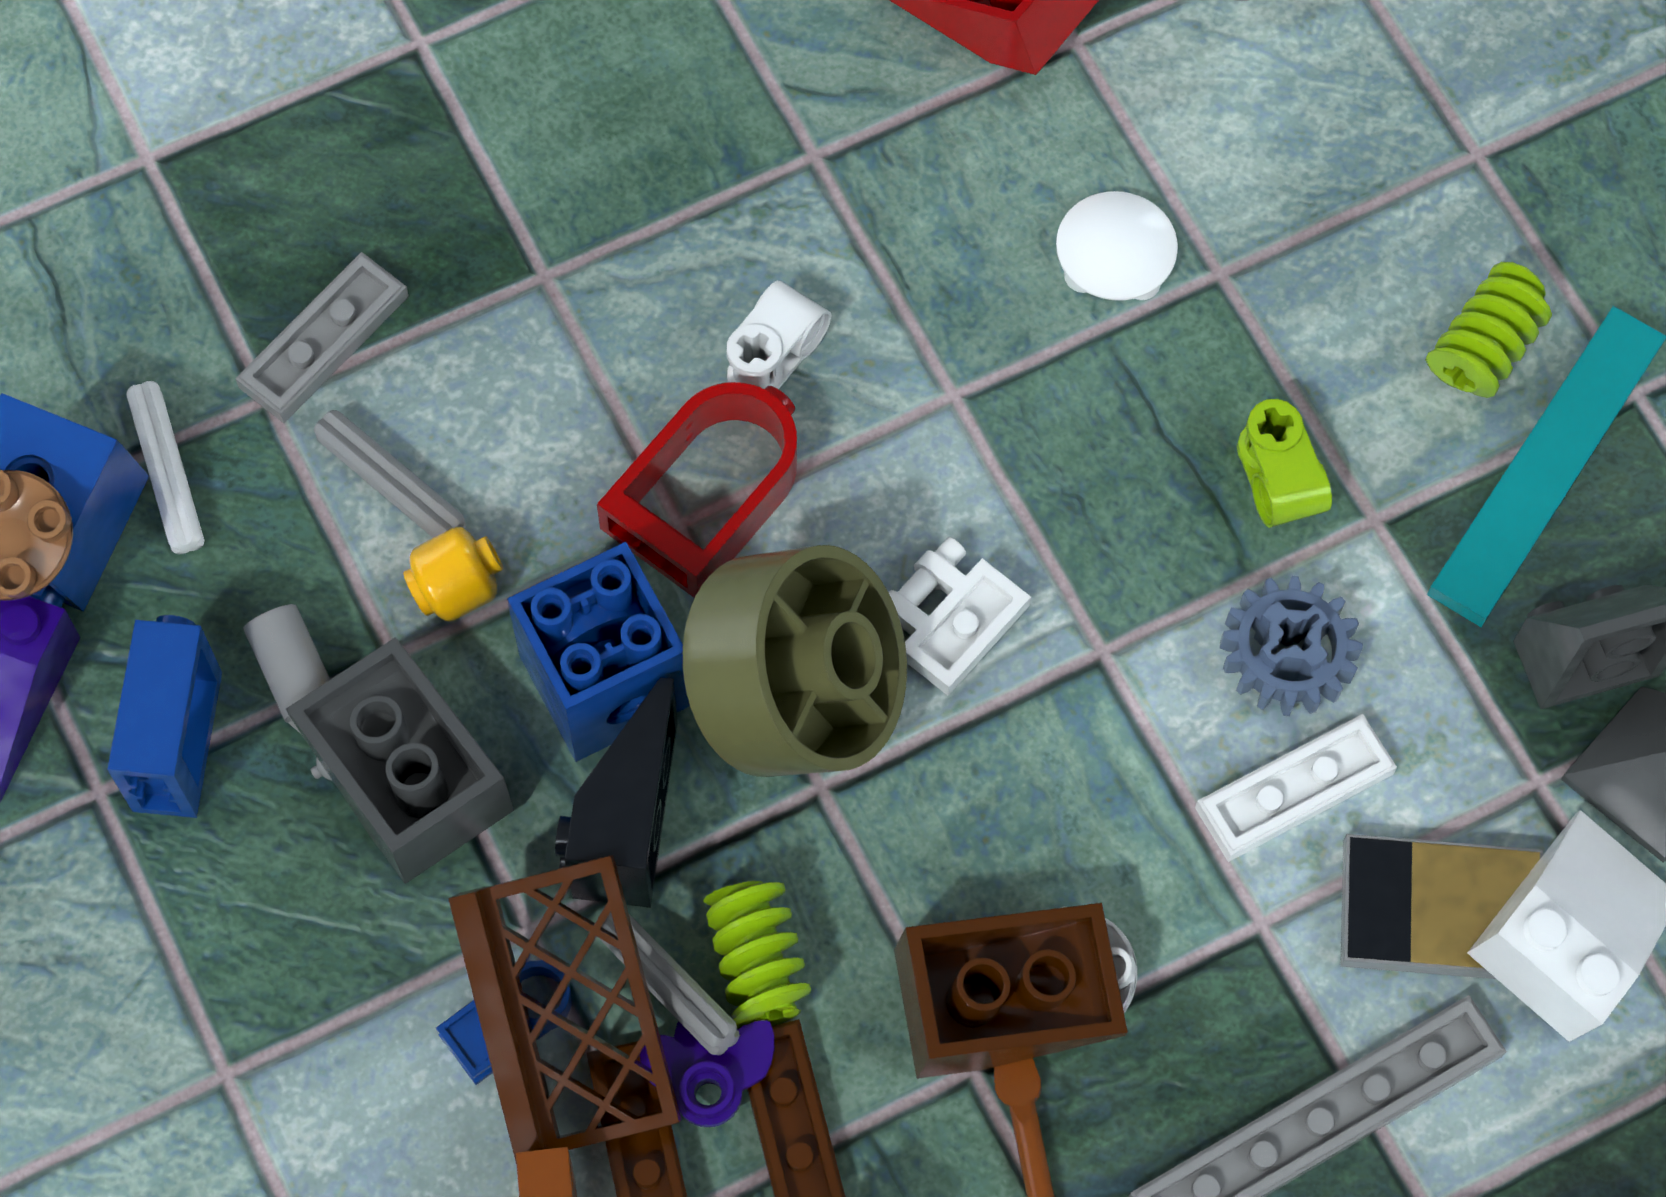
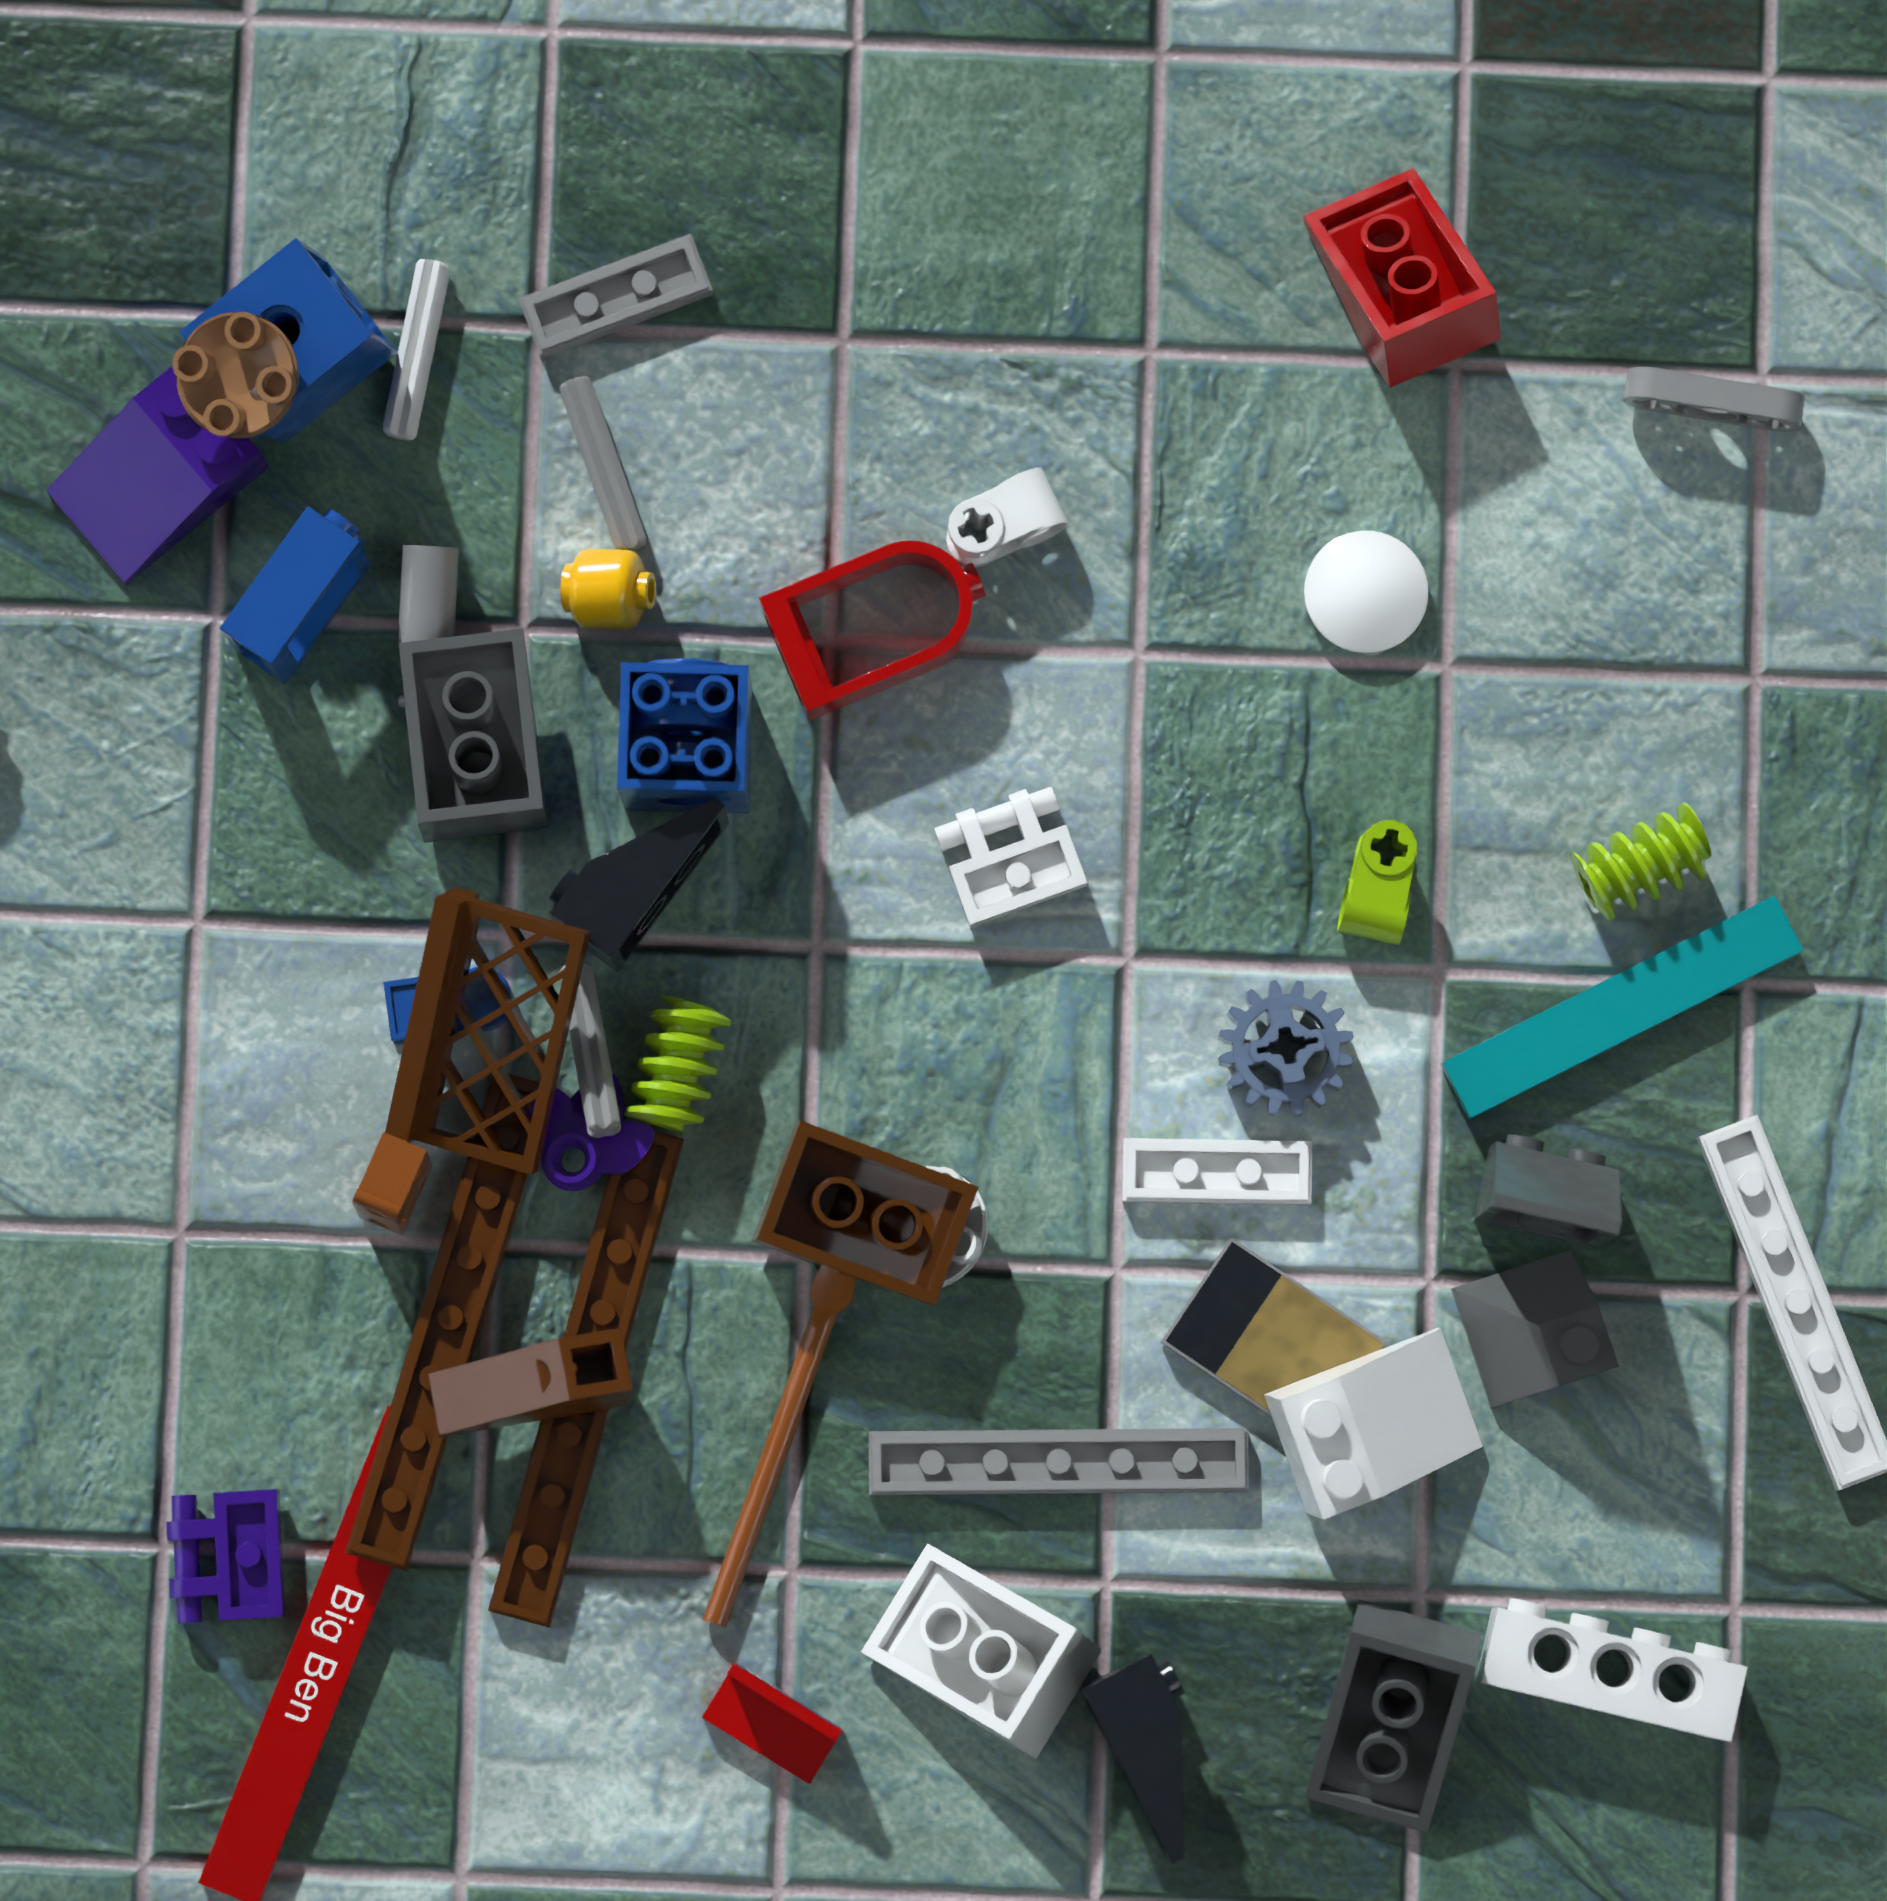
camera: 30 degrees right, 15 degrees up
(795, 662) = (838, 843): olive piece -> none

